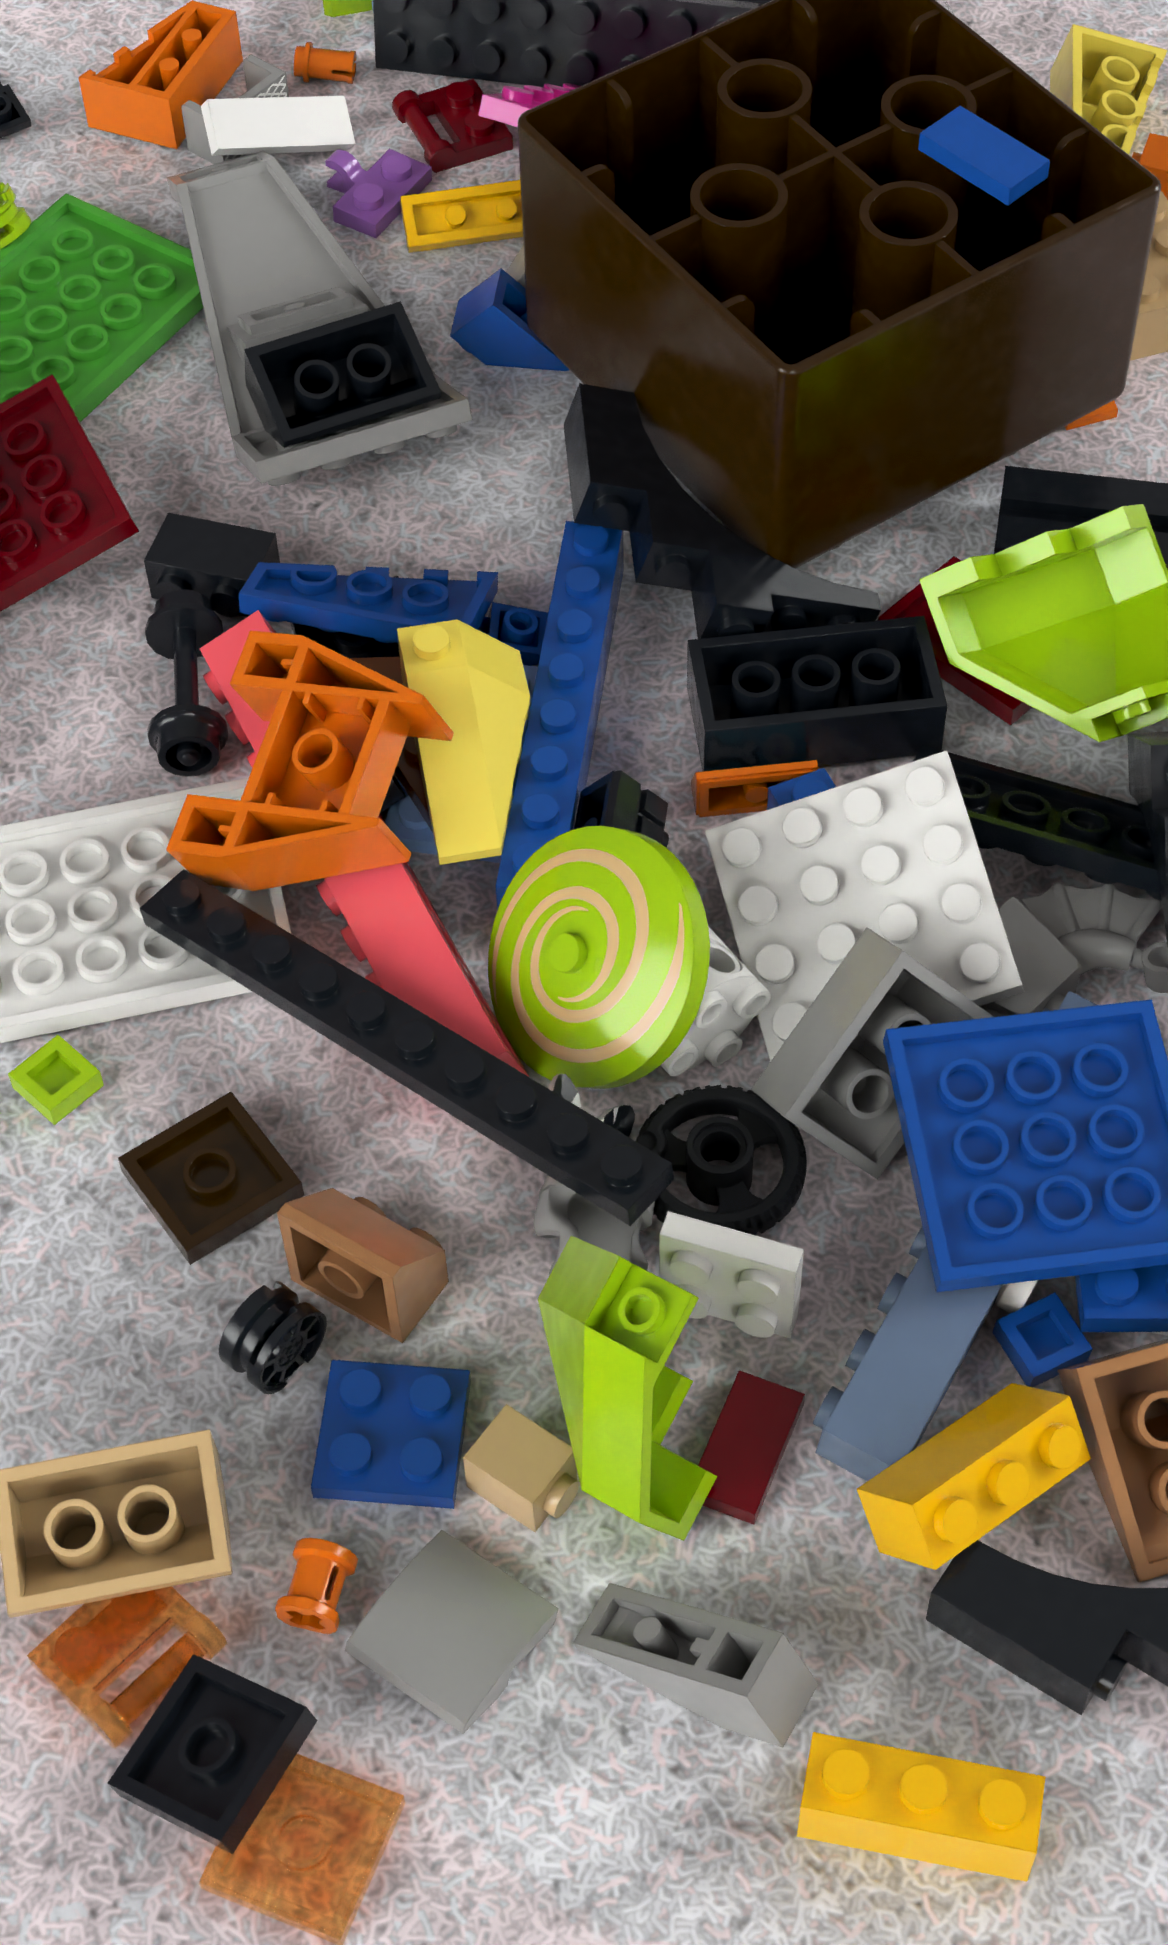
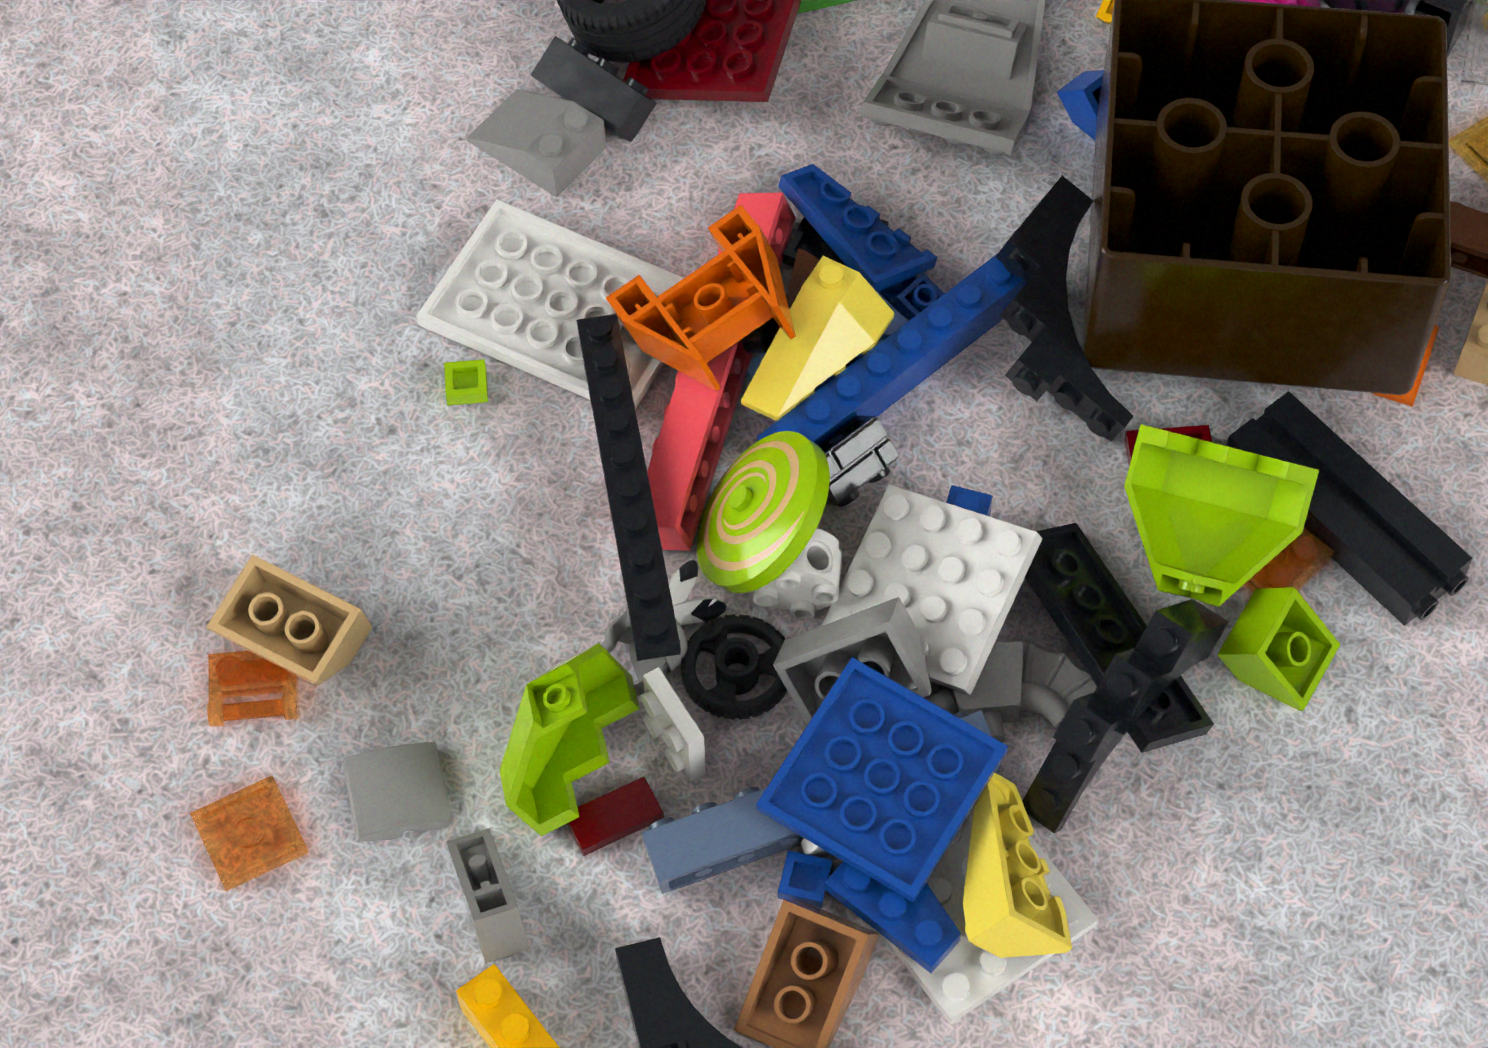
camera: 40 degrees right, 5 degrees up
(185, 734) = (690, 239): black piece -> none
(207, 559) = (795, 141): black brick -> none
(210, 1177) = (491, 487): dark brown plate -> none
(213, 1753) = (241, 760): black plate -> none
(270, 1336) = (440, 587): black wheel -> none
(316, 1585) = (356, 722): orange bush -> none
(338, 375) = (957, 79): black slope -> none
(362, 1260) = (519, 581): medium nougat slope -> none
(391, 1434) = (459, 679): blue plate -> none
(522, 1469) = (490, 737): tan brick -> none
(741, 788) = (947, 473): orange slope -> none
(816, 694) = (1038, 451): black brick -> none
(973, 1475) = (692, 911): yellow brick -> none
(984, 155) = (1355, 194): blue tile -> none

